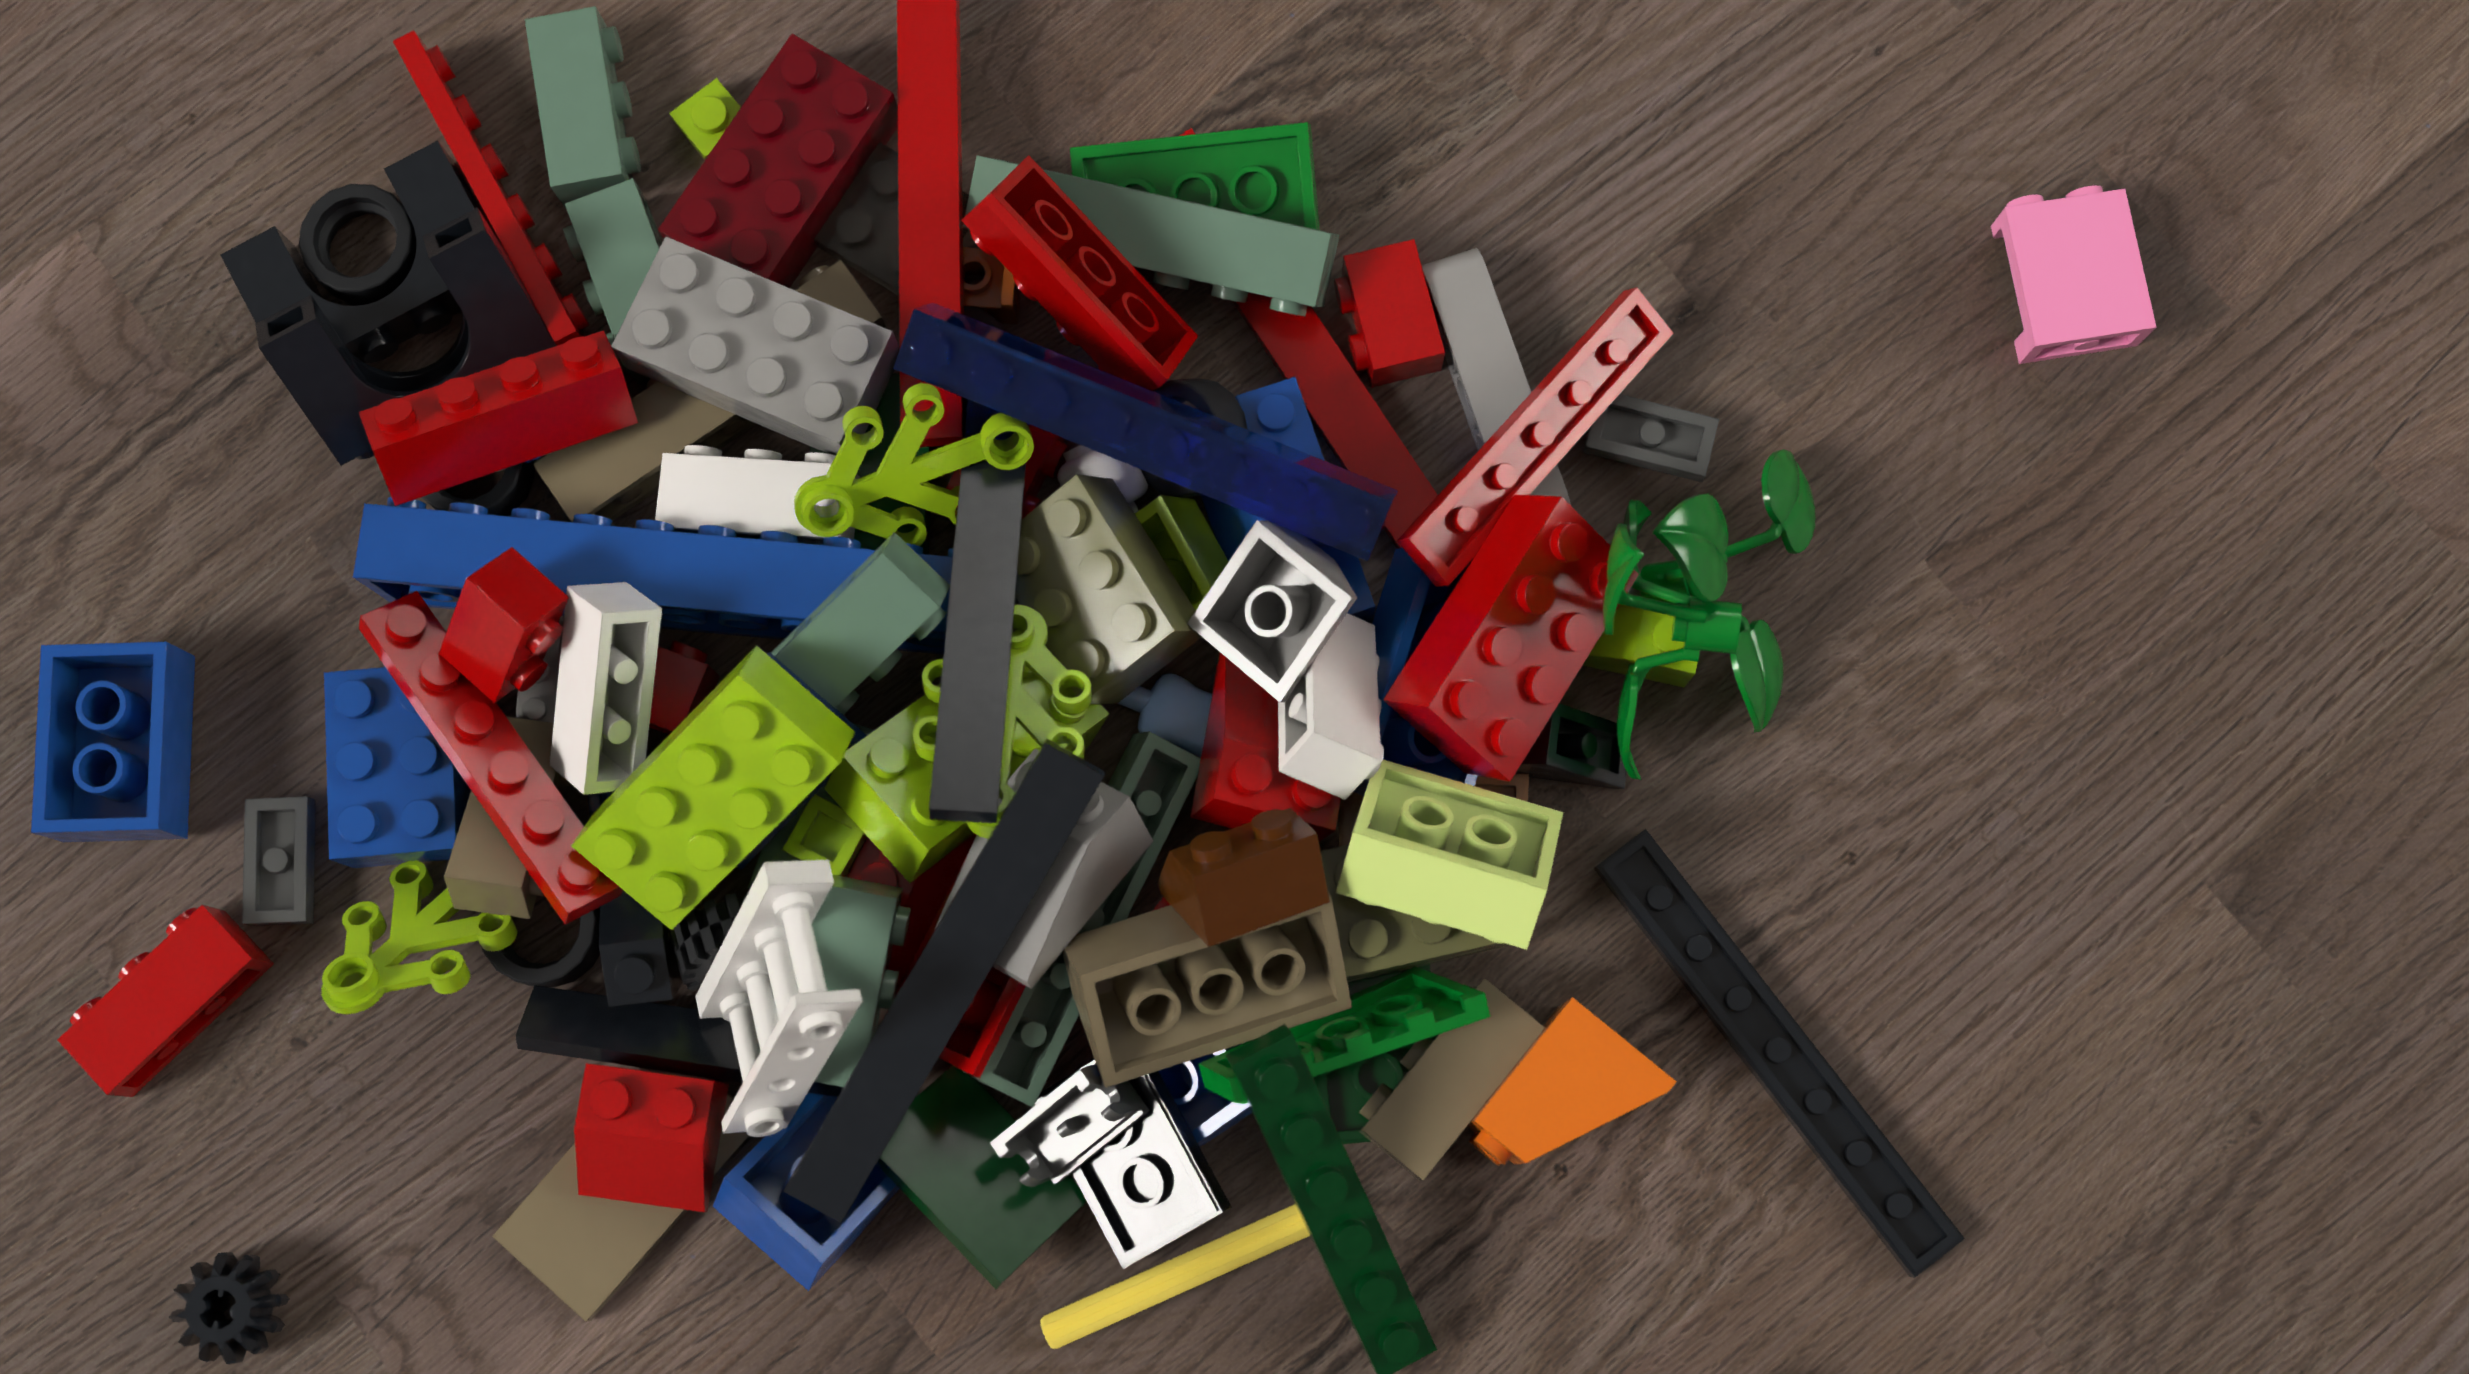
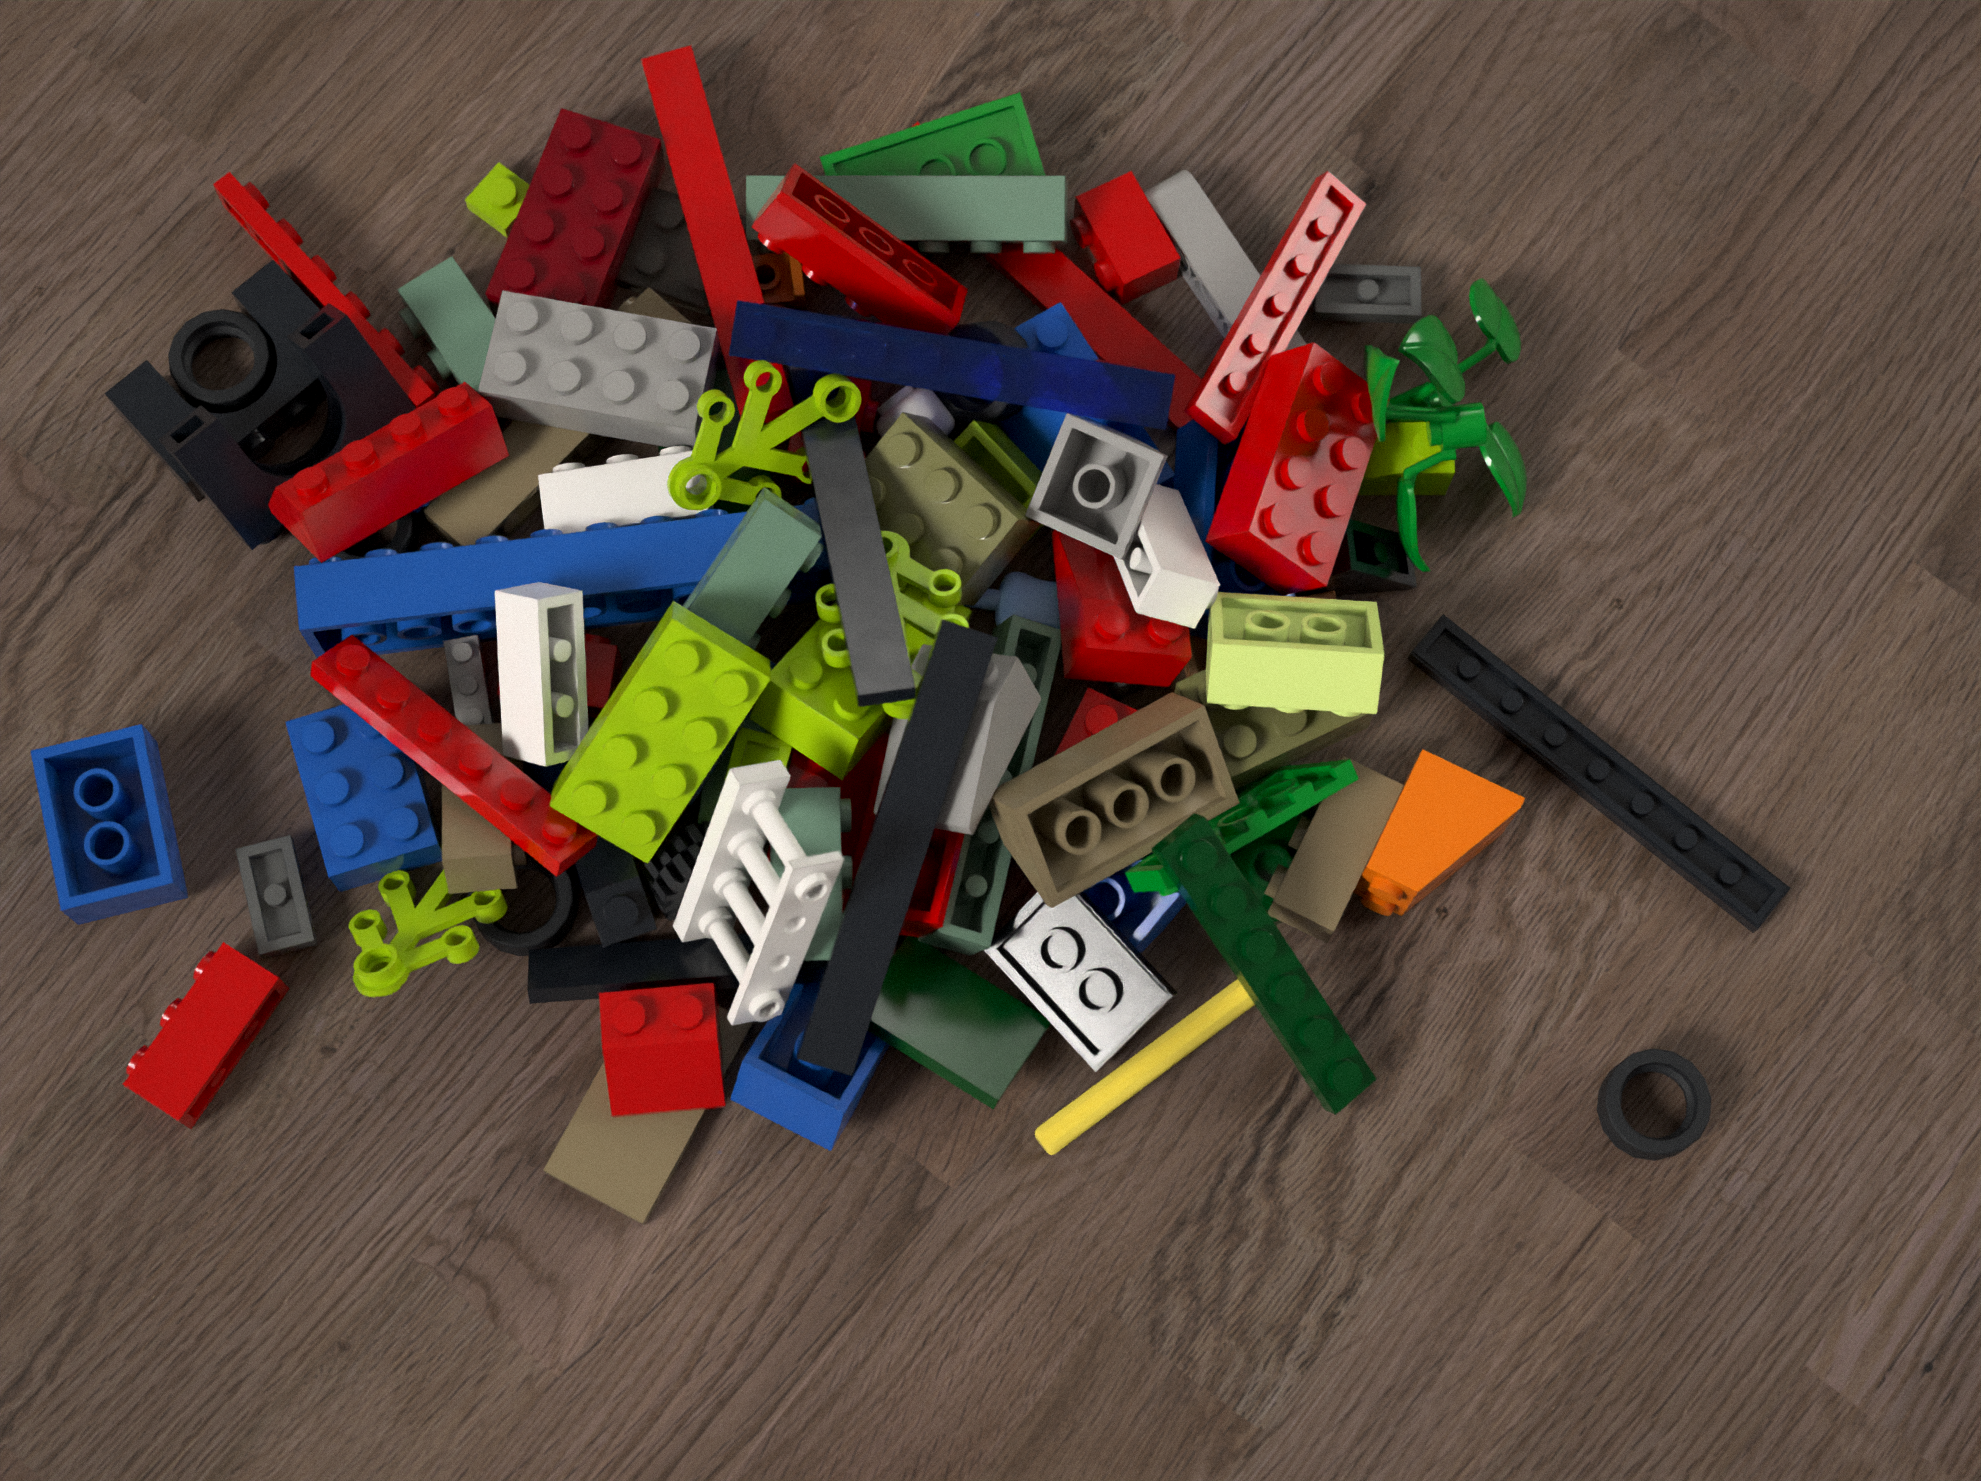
camera: 20 degrees left, 5 degrees down
(209, 1301) = (307, 1287): black gear -> none
(504, 625) = (445, 638): red brick -> none
(581, 102) = (387, 204): sand green brick -> none
(1070, 1126) = (1025, 954): hinge -> none
(1246, 876) = (1128, 702): reddish brown slope -> none
(2075, 274) = (1683, 90): bright pink panel -> none

